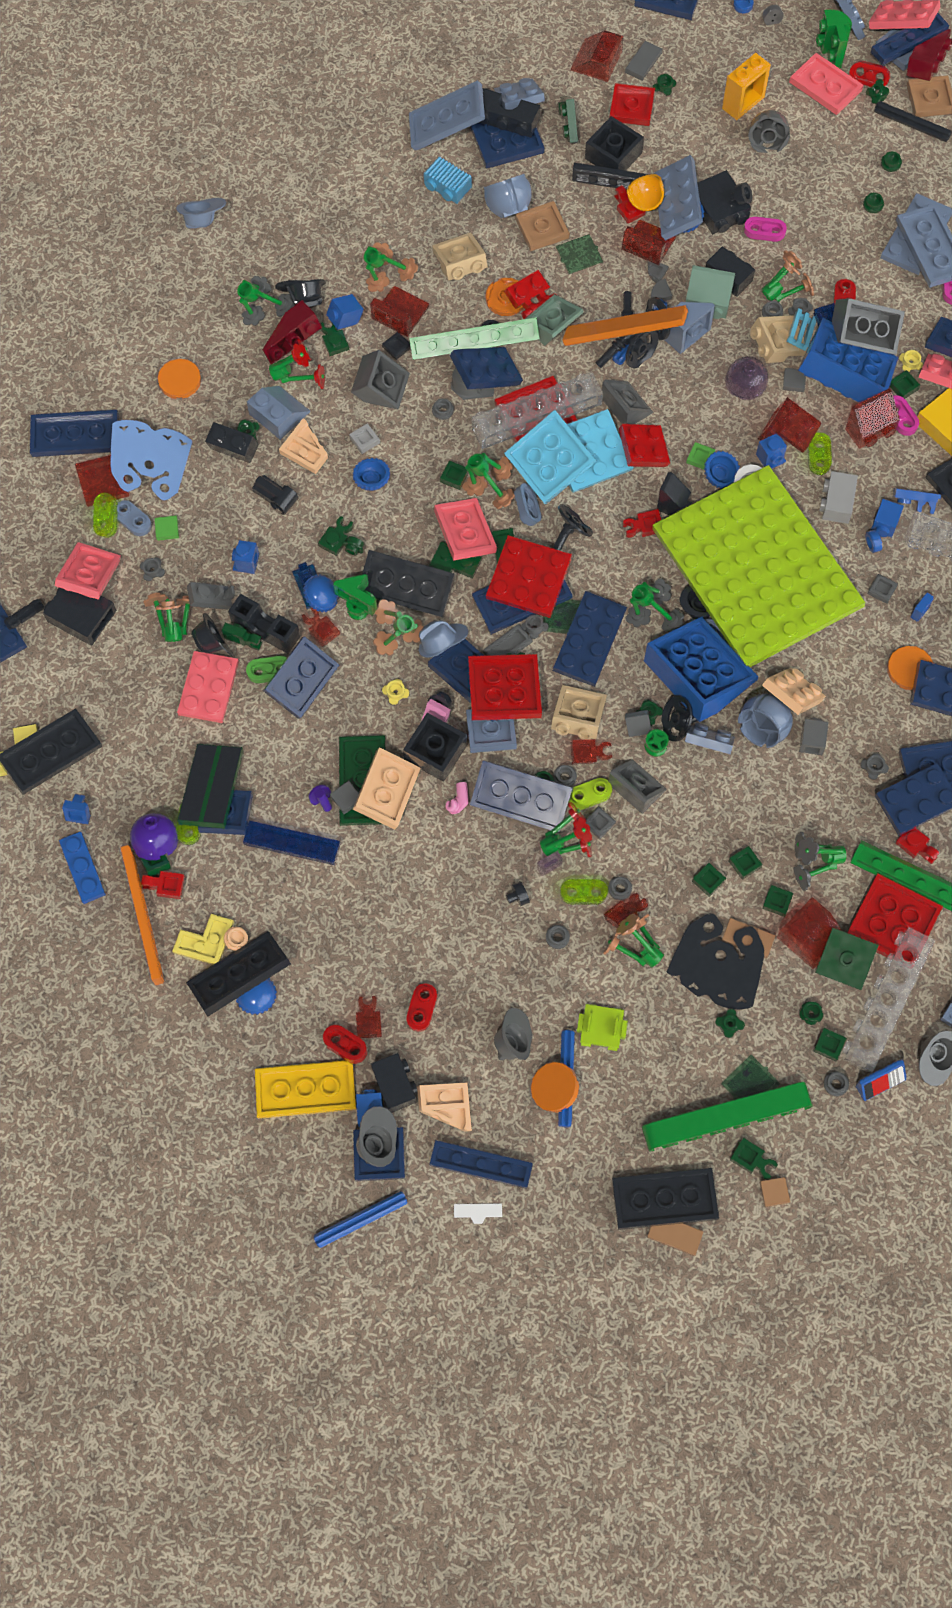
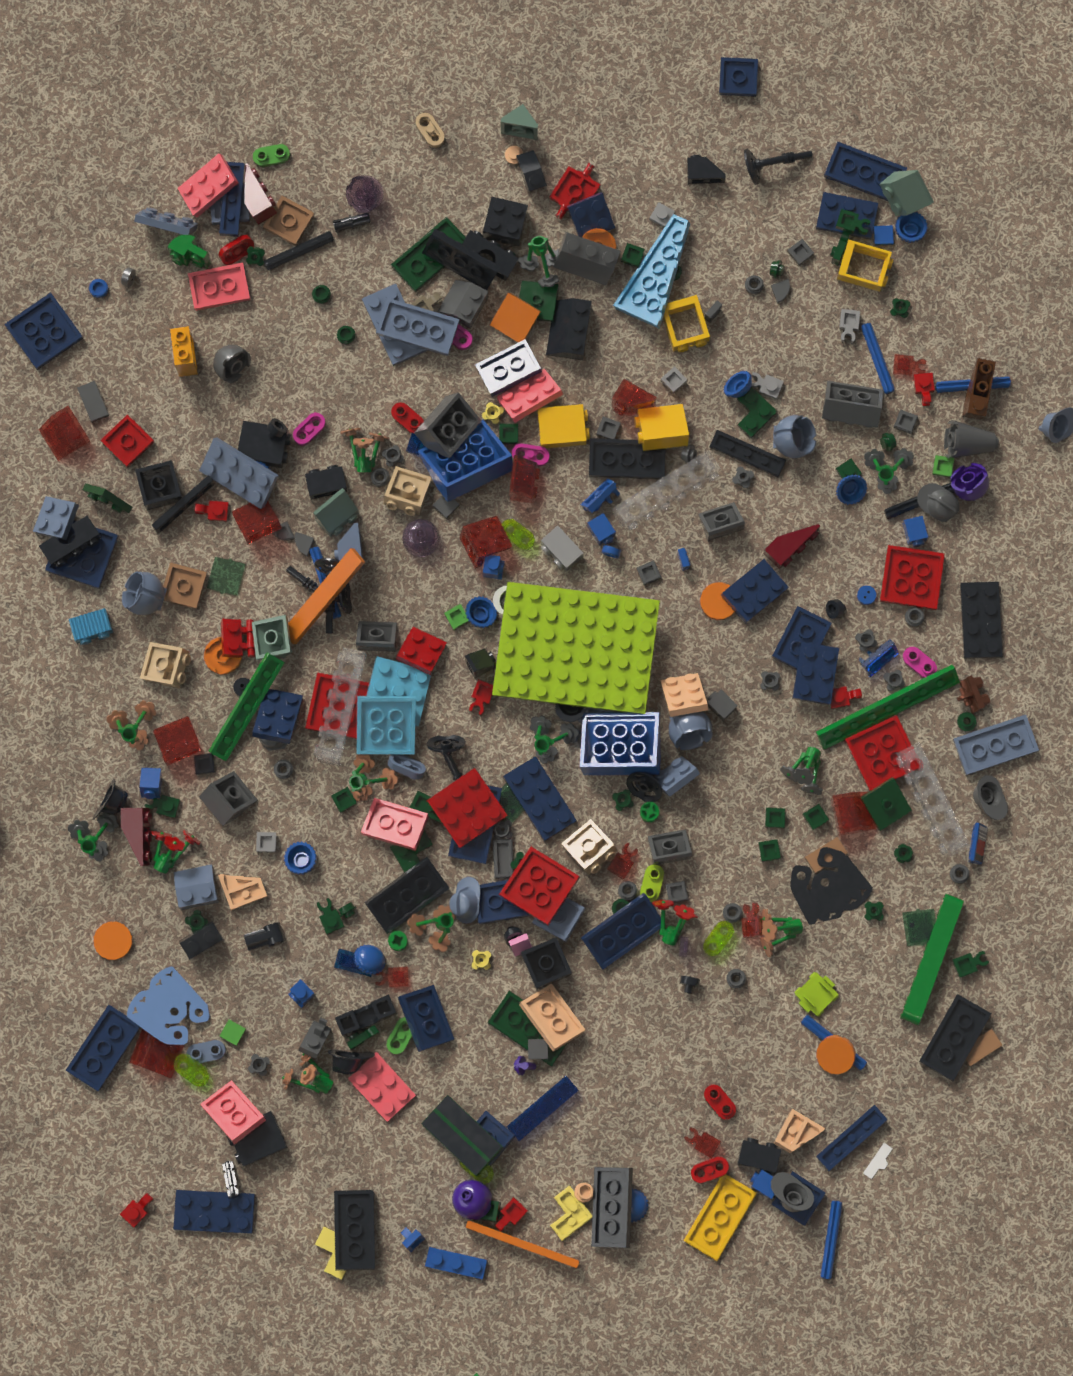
camera: 55 degrees left, 10 degrees up
(352, 590) = (389, 939): green slope -> none
(446, 115) = (39, 588): sand blue plate -> none
(460, 801) = (594, 973): bright pink arm -> none
(514, 1036) = (785, 1056): dark grey piece -> none
(638, 723) = (627, 814): dark grey tile -> none
(646, 192) = (218, 493): light orange helmet -> none
(669, 84) = (122, 402): dark green plate -> none
(774, 1192) = (998, 965): medium nougat tile -> none
(805, 320) = (426, 479): medium azure tile -> none
(830, 1044) = (932, 858): dark green plate -> none

